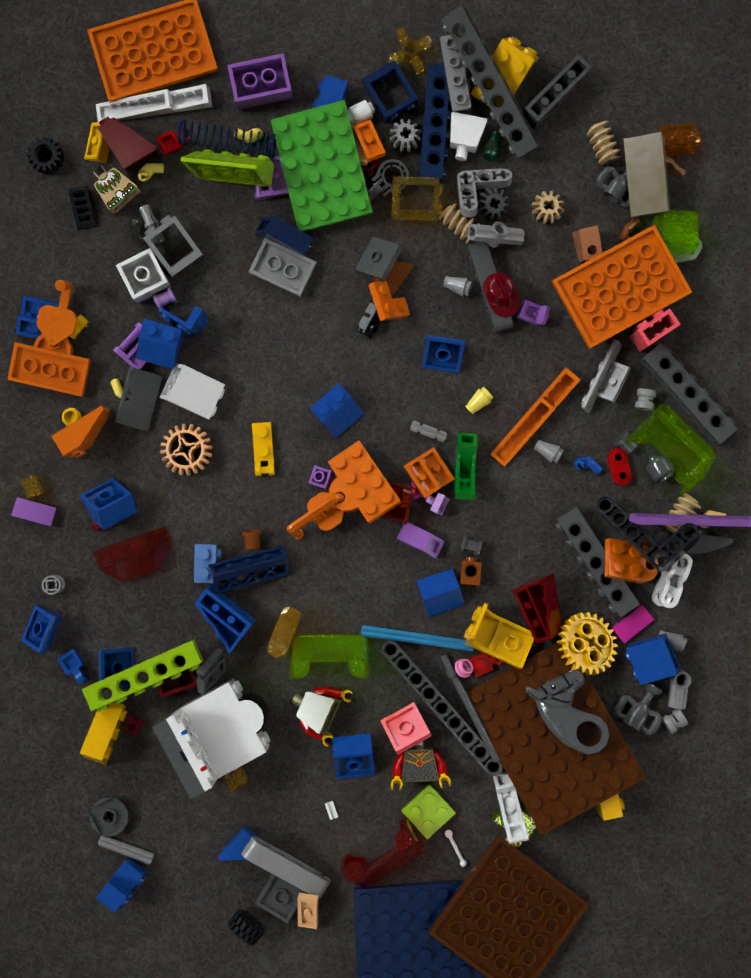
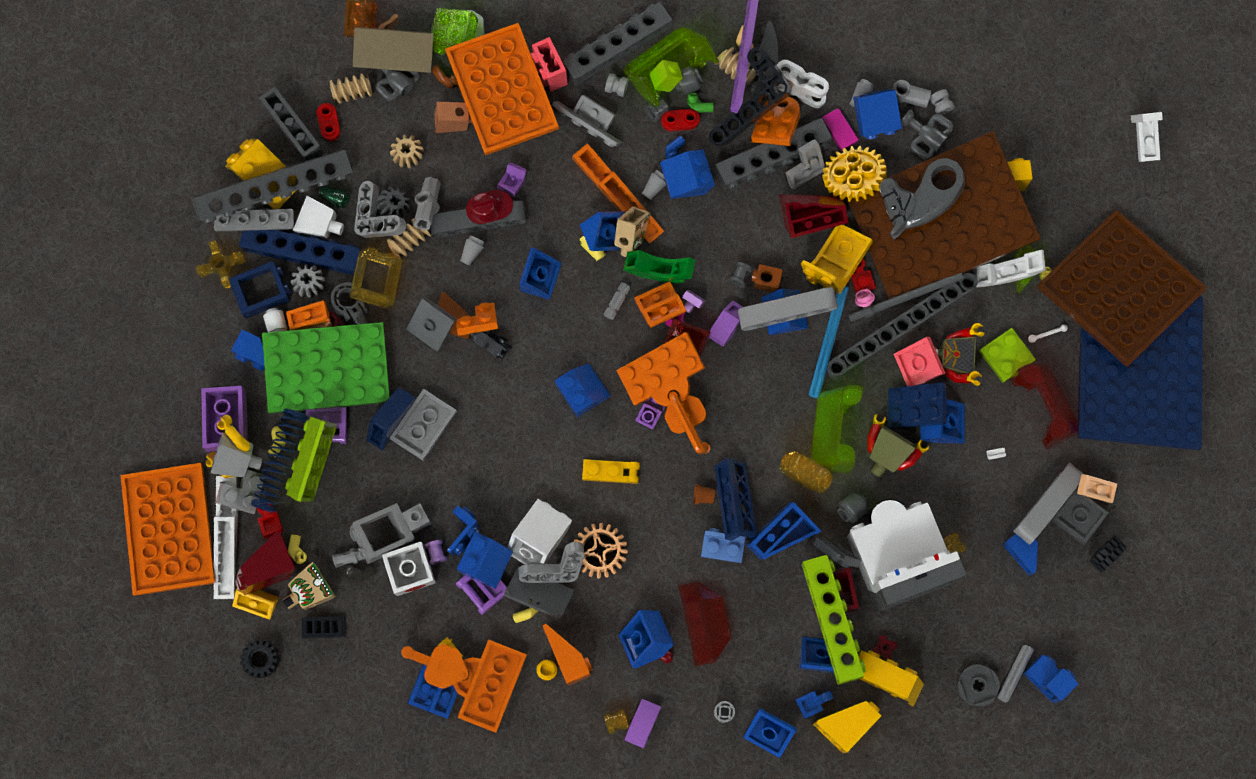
camera: 85 degrees left, 10 degrees down
(54, 700) = (849, 725): none -> yellow slope
(163, 422) = (555, 573): none -> light grey beam
(188, 109) = (241, 497): none -> light grey plate
(192, 275) = (416, 518): none -> light grey brick
(224, 92) = (233, 452): none -> light grey torso
(258, 680) = (852, 507): none -> dark grey head
(362, 731) = (917, 406): none -> dark blue plate
(438, 595) = (787, 309): none -> light grey beam
(491, 432) = (631, 229): none -> tan torso
(492, 408) = (601, 230): none -> blue slope
(562, 481) = (687, 174): none -> blue slope
(568, 128) = (328, 121): none -> red plate
(590, 600) = (811, 165): none -> light grey plate
(636, 481) = (695, 103): none -> bright green arm
(660, 446) = (666, 76): none -> lime brick
(670, 929) = (1147, 135): none -> white bracket

